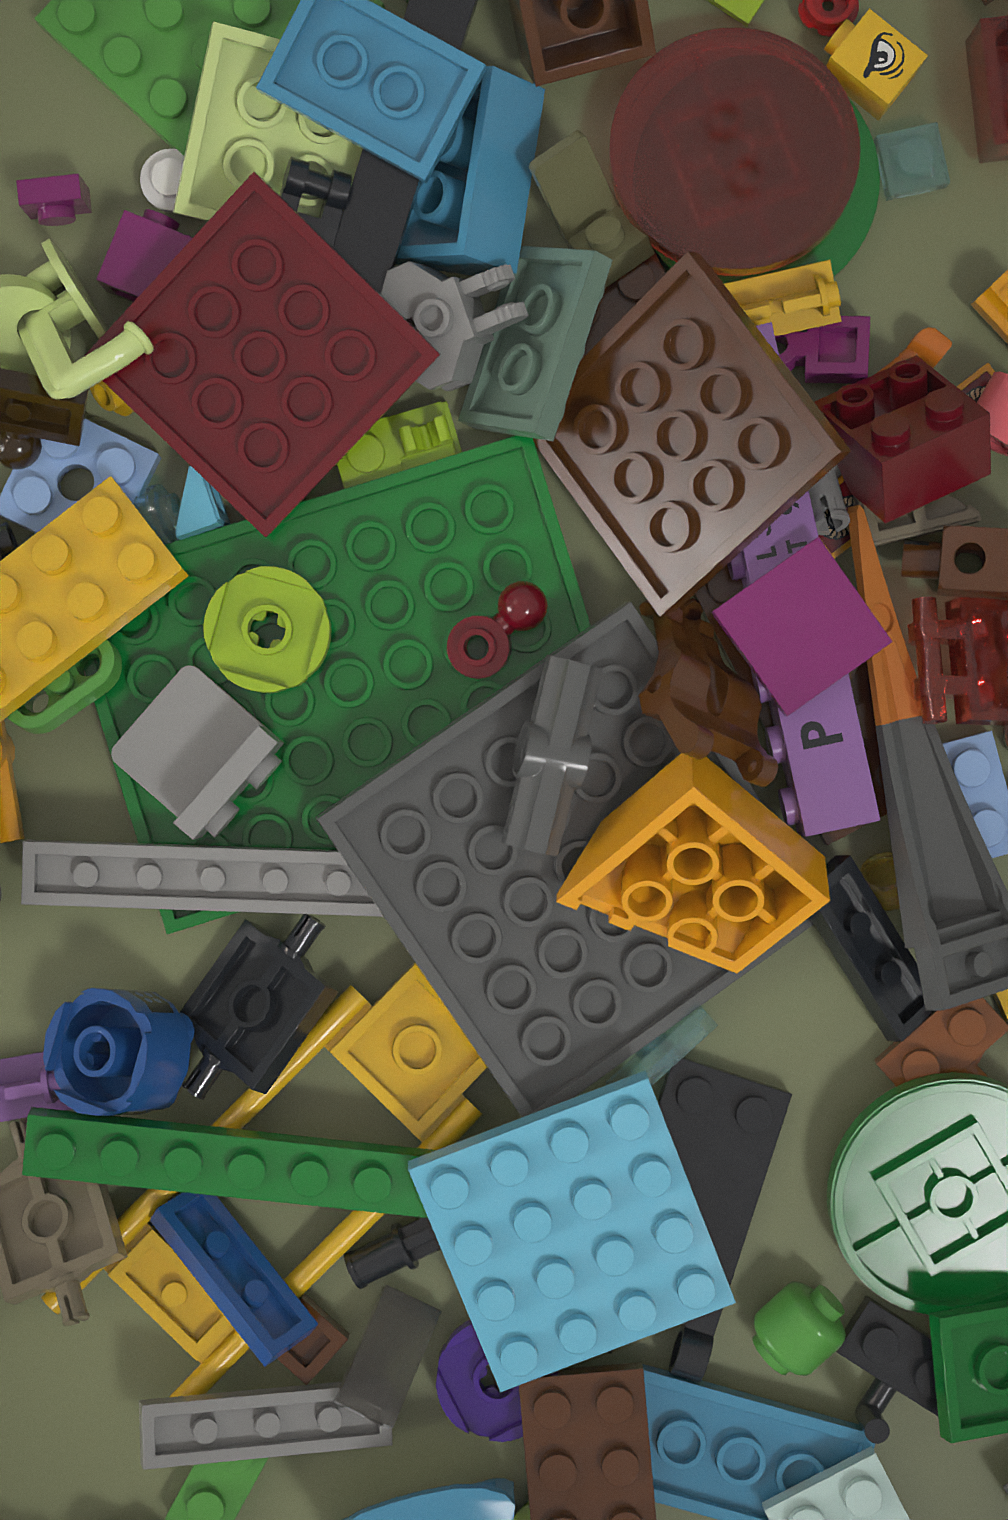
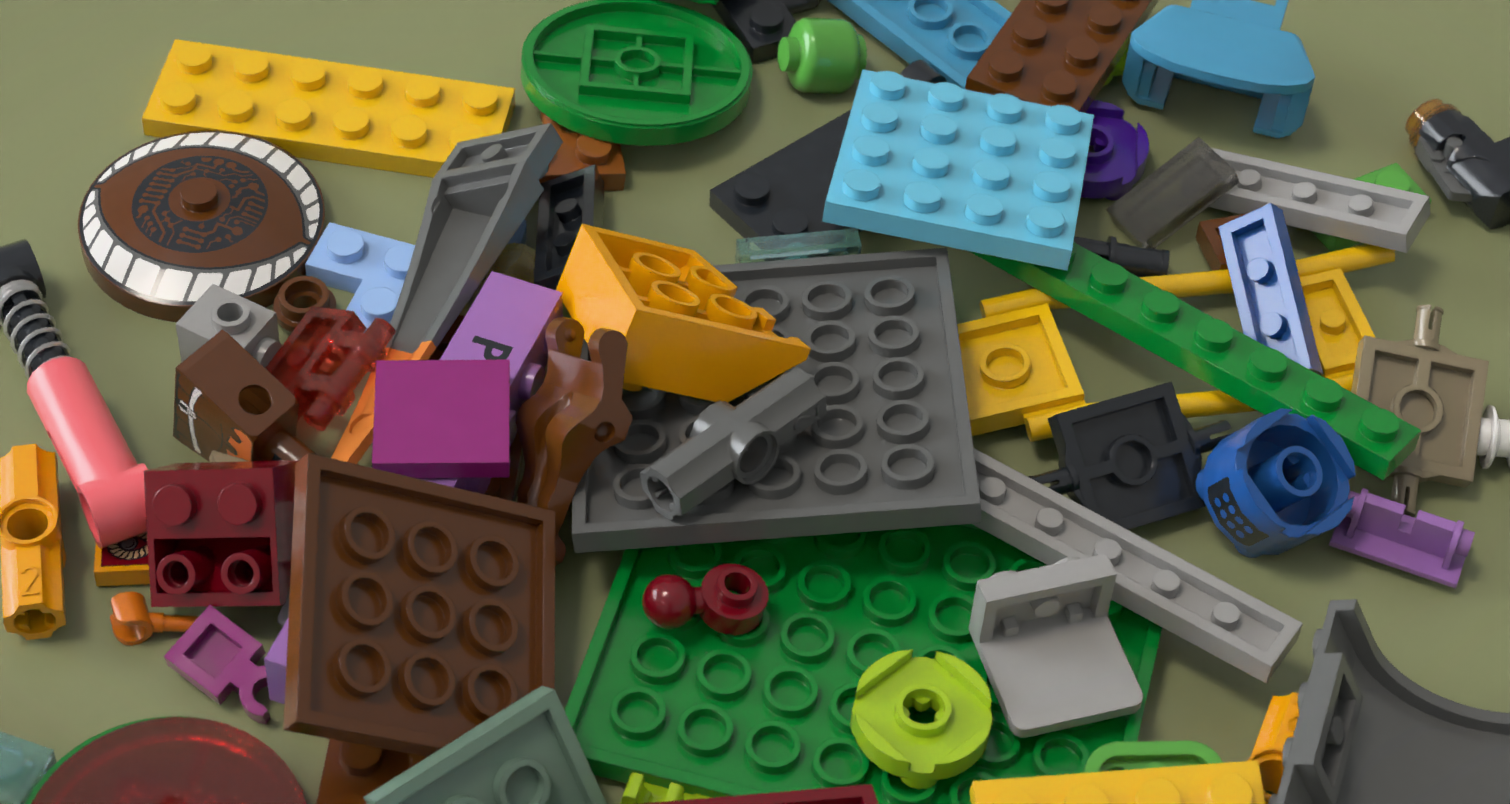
camera: 150 degrees left, 40 degrees down
(790, 297) = (215, 693): yellow hinge -> none

